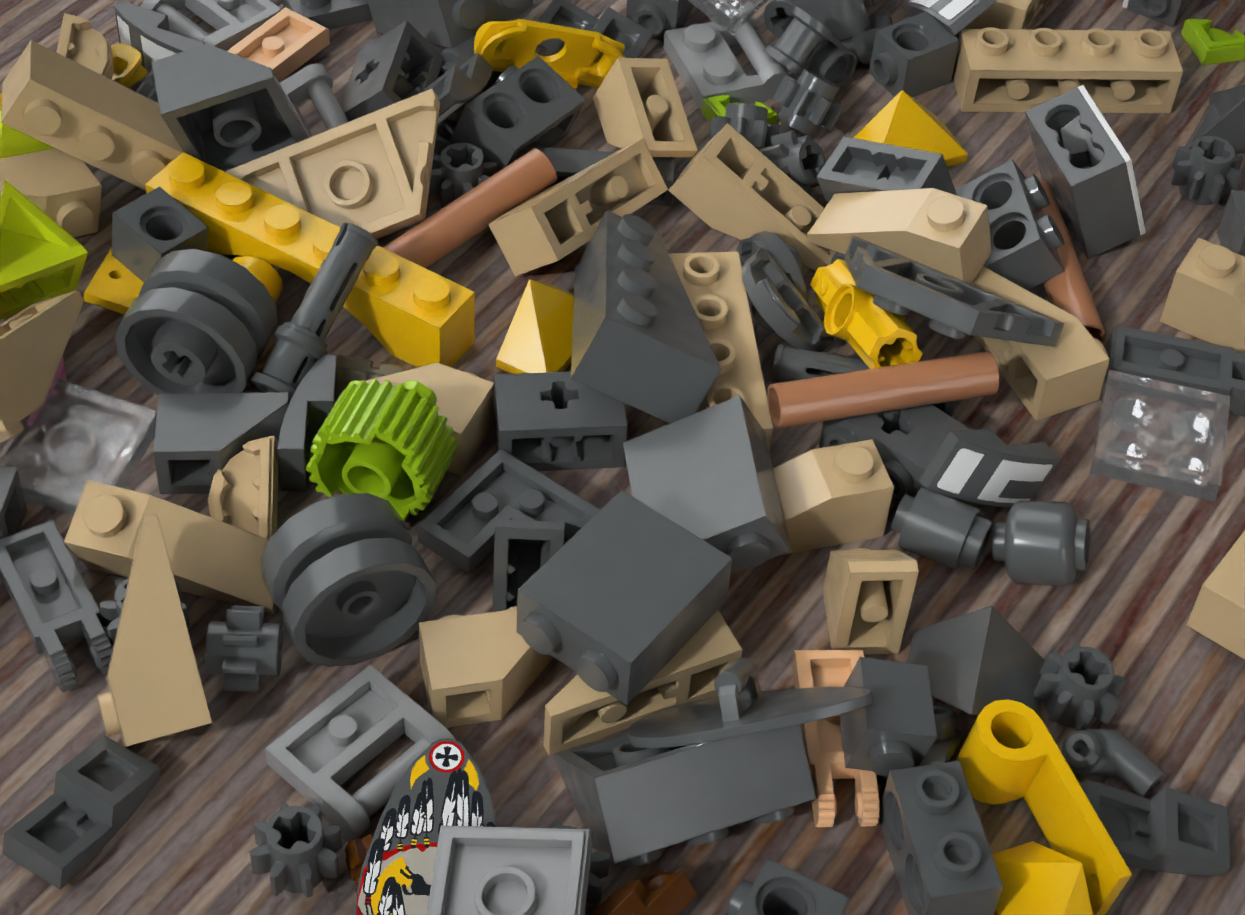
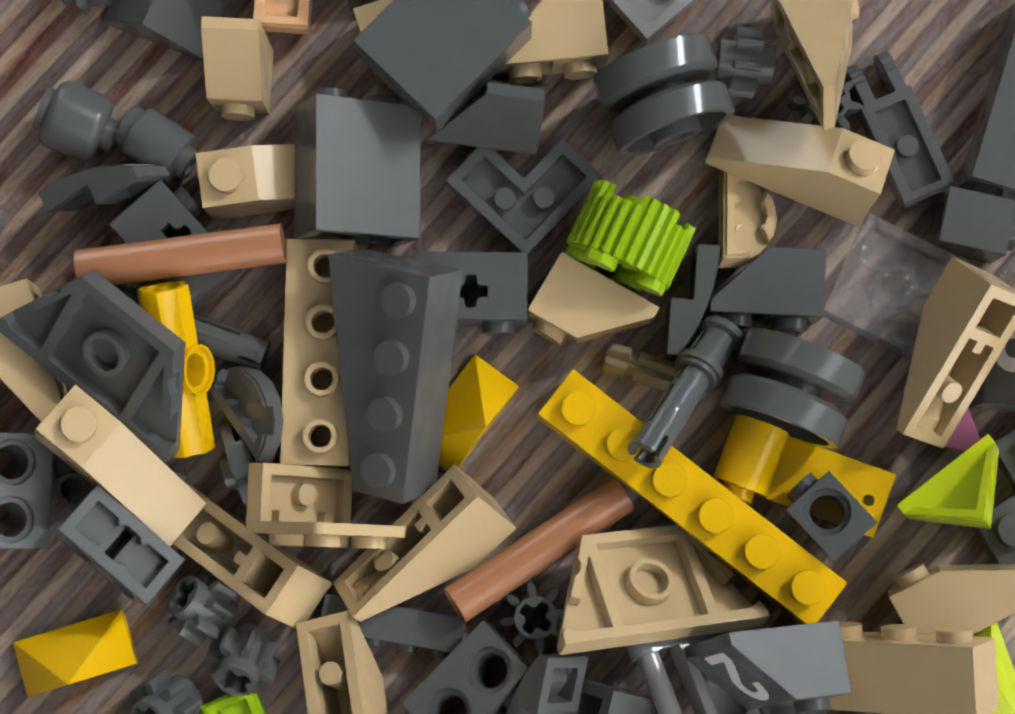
camera: 170 degrees left, 35 degrees up
(690, 195) = (308, 502): none -> tan bracket

